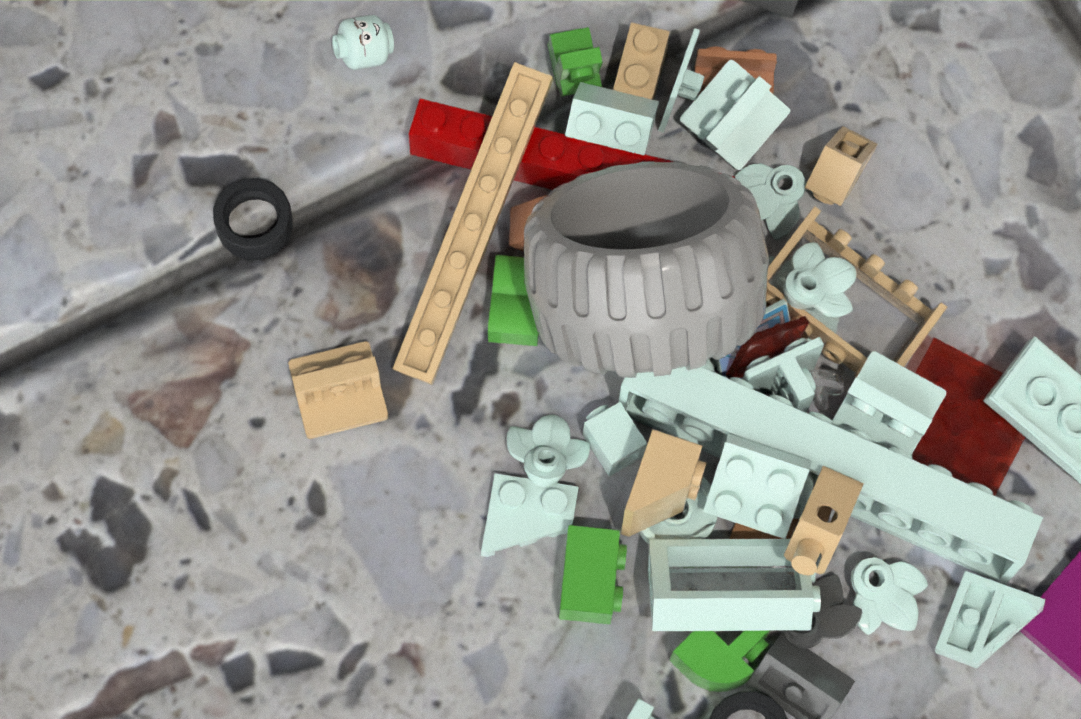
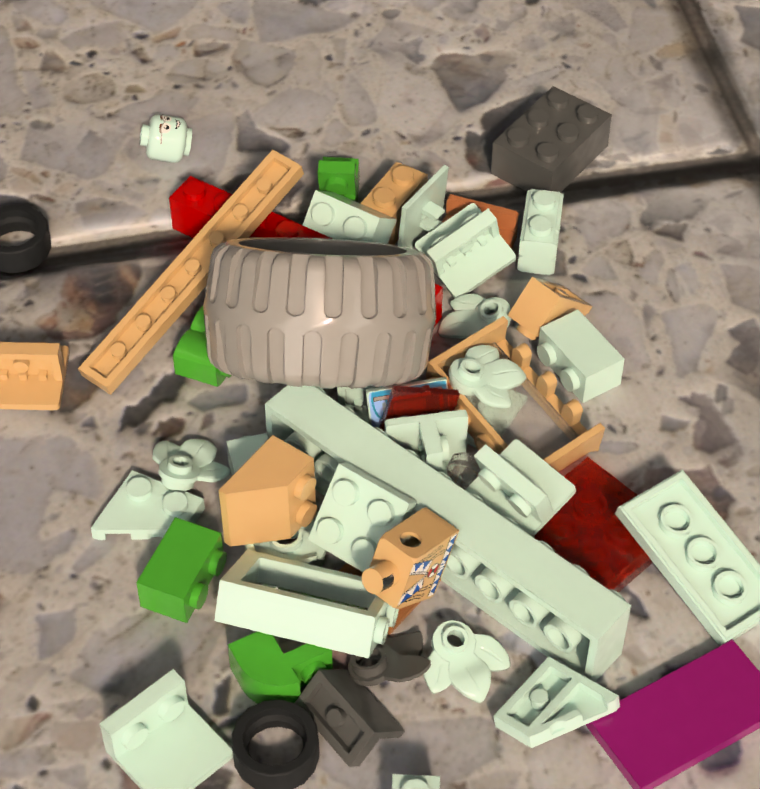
camera: 20 degrees right, 20 degrees down
(802, 67) = (540, 232): none -> light aqua brick
(888, 215) = (580, 356): none -> light aqua brick

